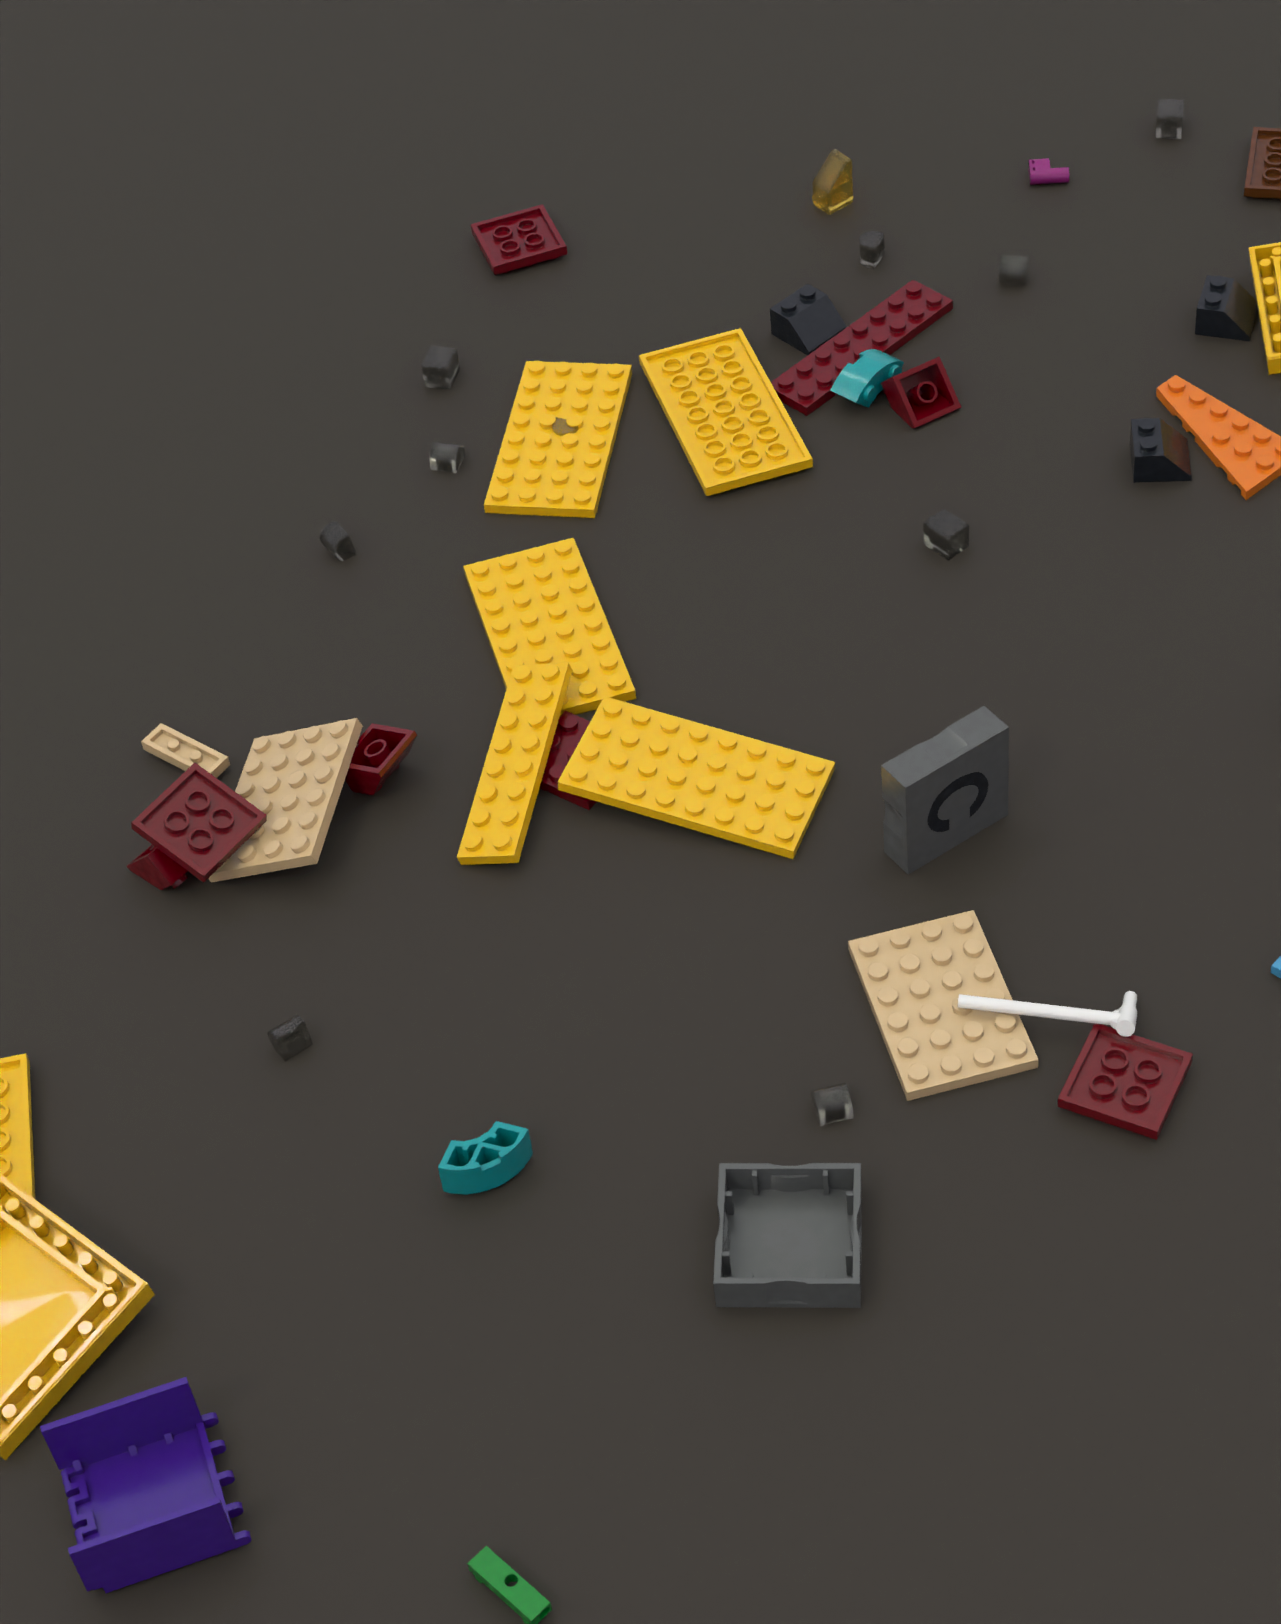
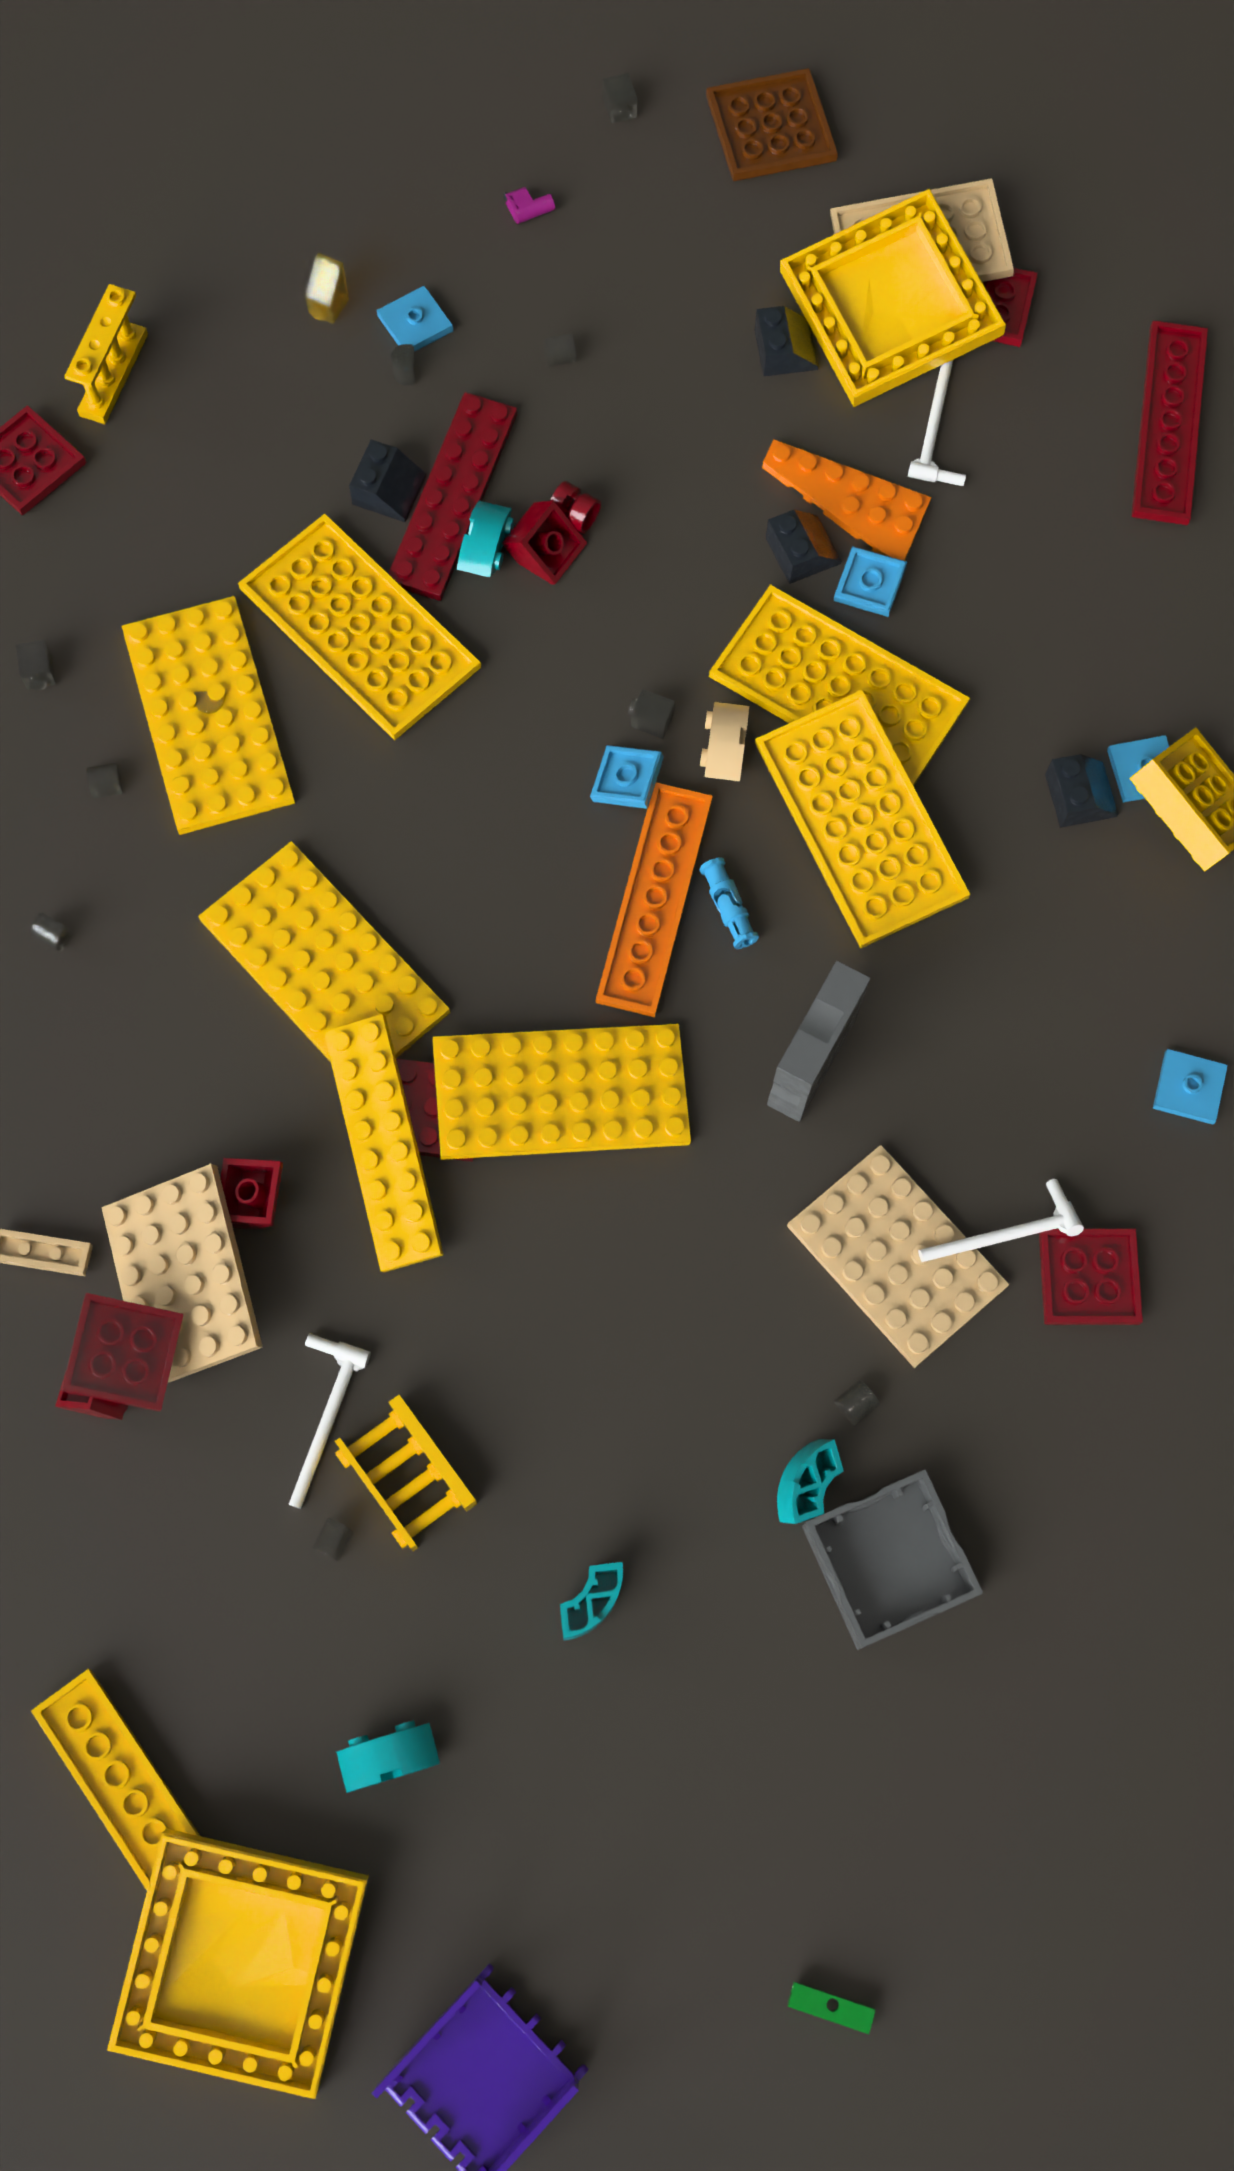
camera: 35 degrees left, 25 degrees up
(230, 1212) = (388, 1756): none -> teal brick
(388, 913) = (350, 1360): none -> white bar
(412, 1016) = (436, 1470): none -> yellow fence
(639, 191) = (106, 354): none -> yellow fence
(744, 1135) = (806, 1480): none -> teal brick
(867, 667) = (654, 900): none -> orange plate
(895, 572) = (627, 776): none -> dark azure plate
(901, 225) = (415, 319): none -> dark azure plate
(935, 688) = (729, 905): none -> dark azure piece
(965, 375) = (578, 507): none -> dark red wheel
(1001, 569) = (726, 741): none -> tan brick
(1097, 659) = (862, 819): none -> yellow plate
(1136, 564) = (803, 661): none -> yellow plate
(1209, 495) = (870, 581): none -> dark azure plate

